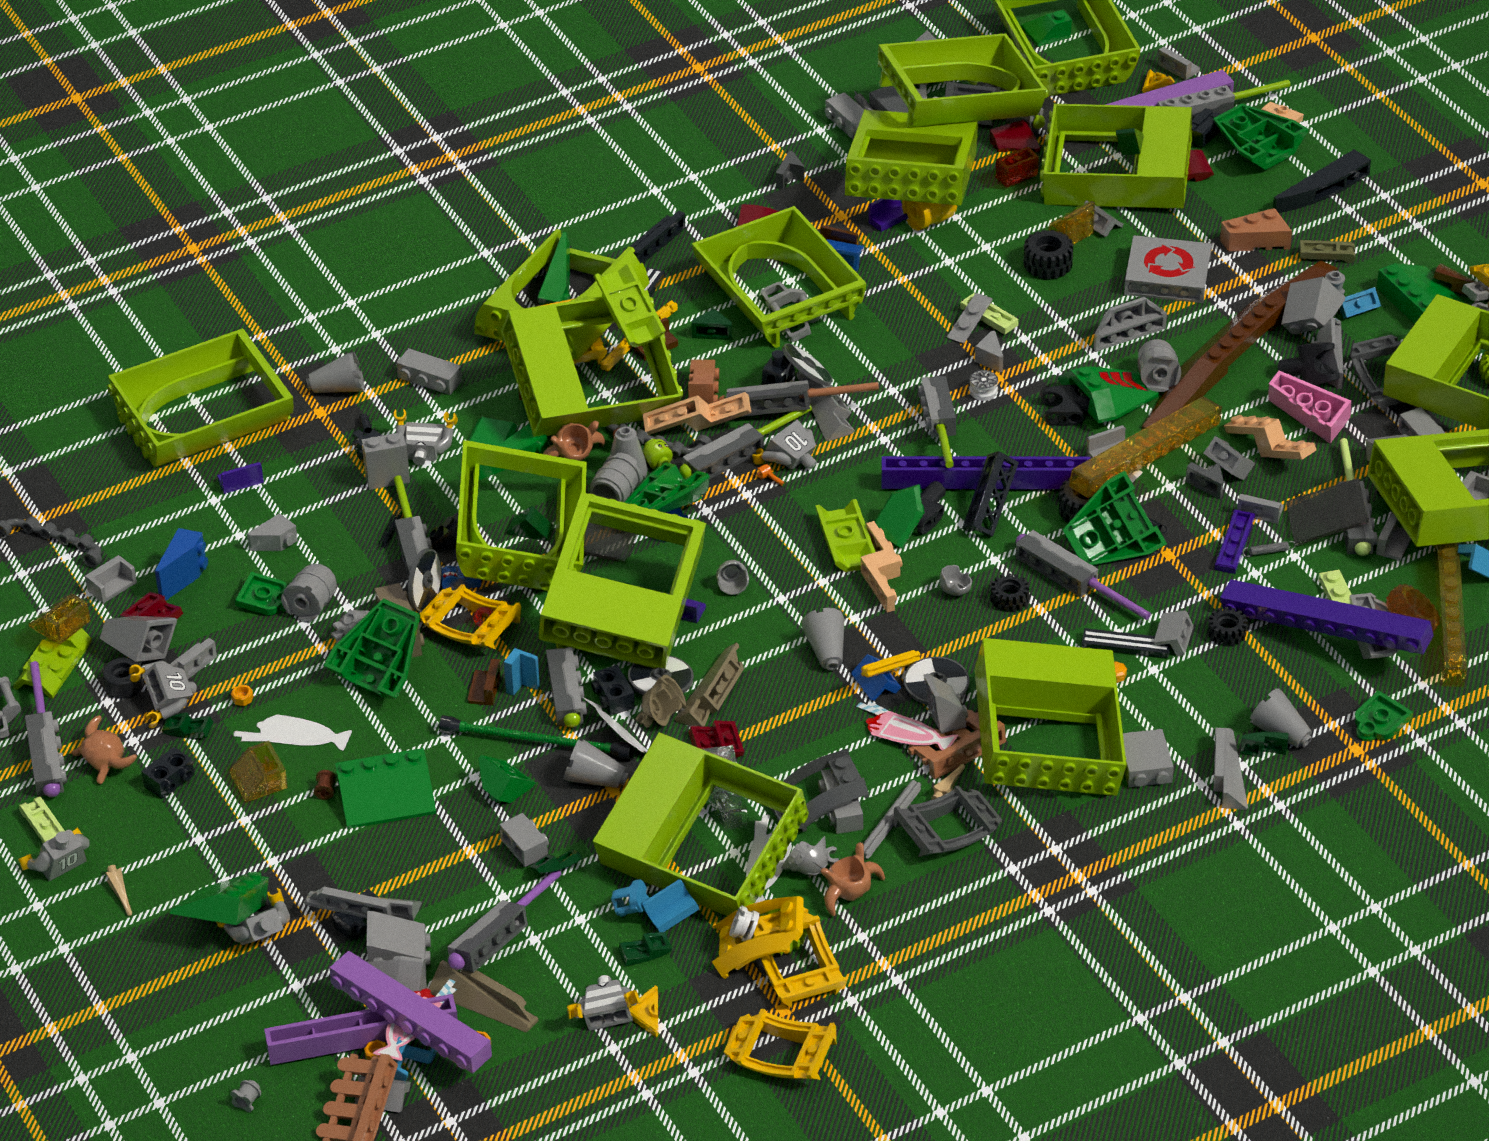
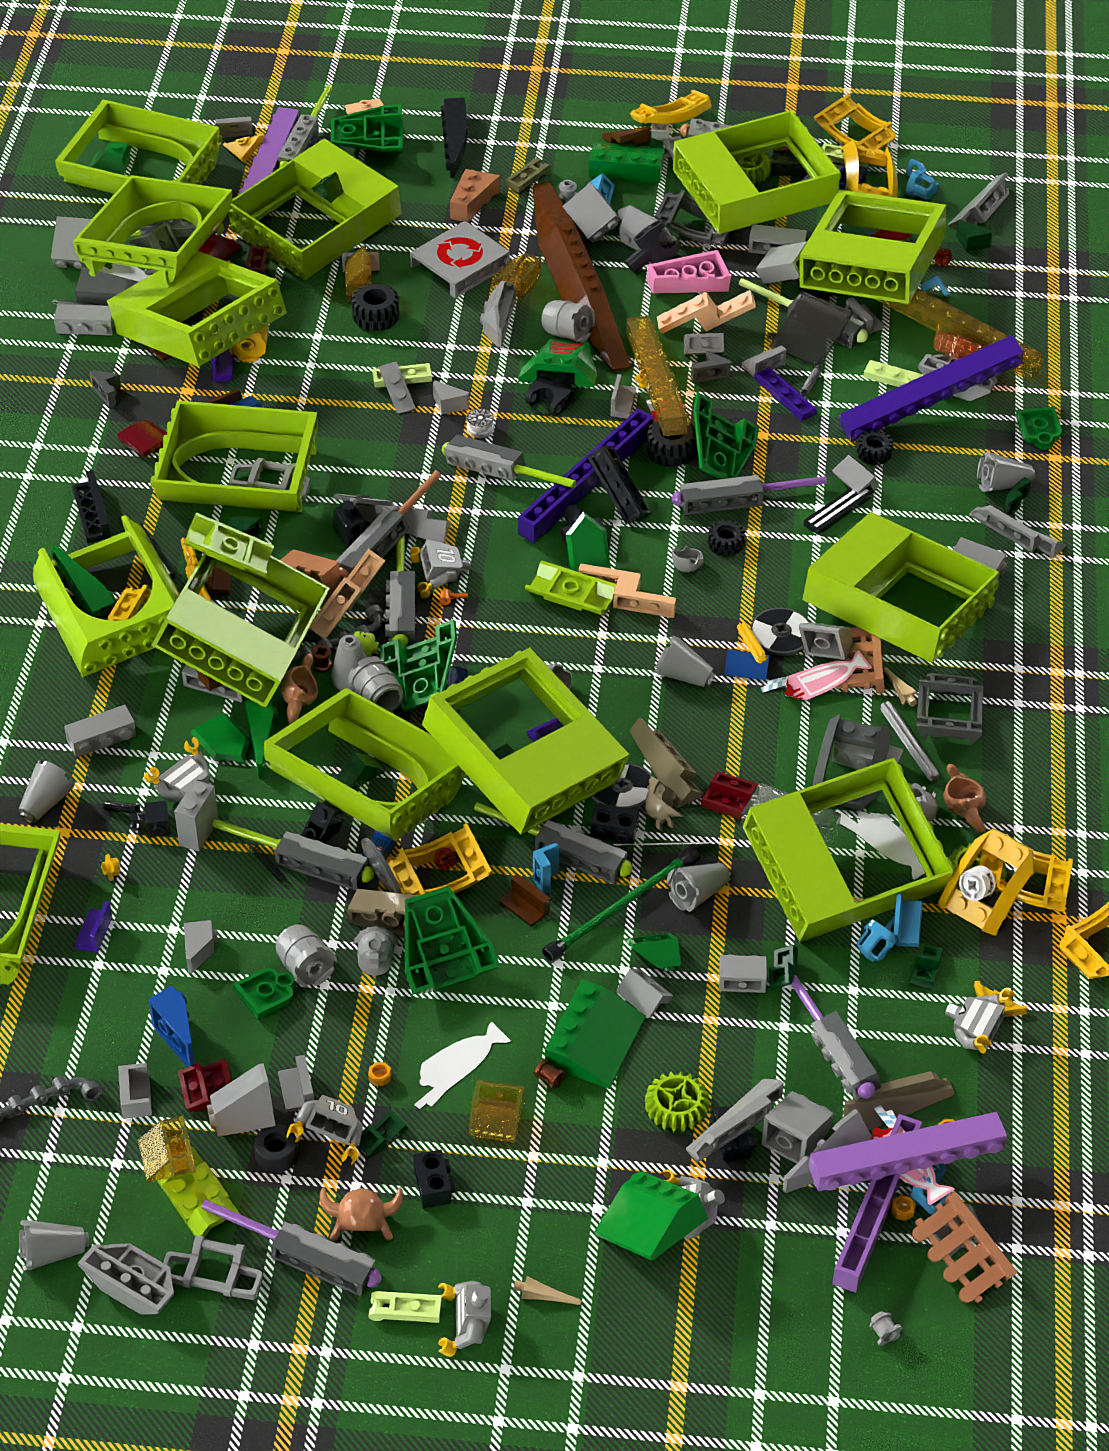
camera: 55 degrees left, 5 degrees up
(303, 451) = (110, 867): none -> yellow plate
(375, 863) = (684, 1111): none -> lime gear
(458, 795) = (643, 992): none -> light grey panel
(1187, 312) = (522, 272): none -> clear yellow slope

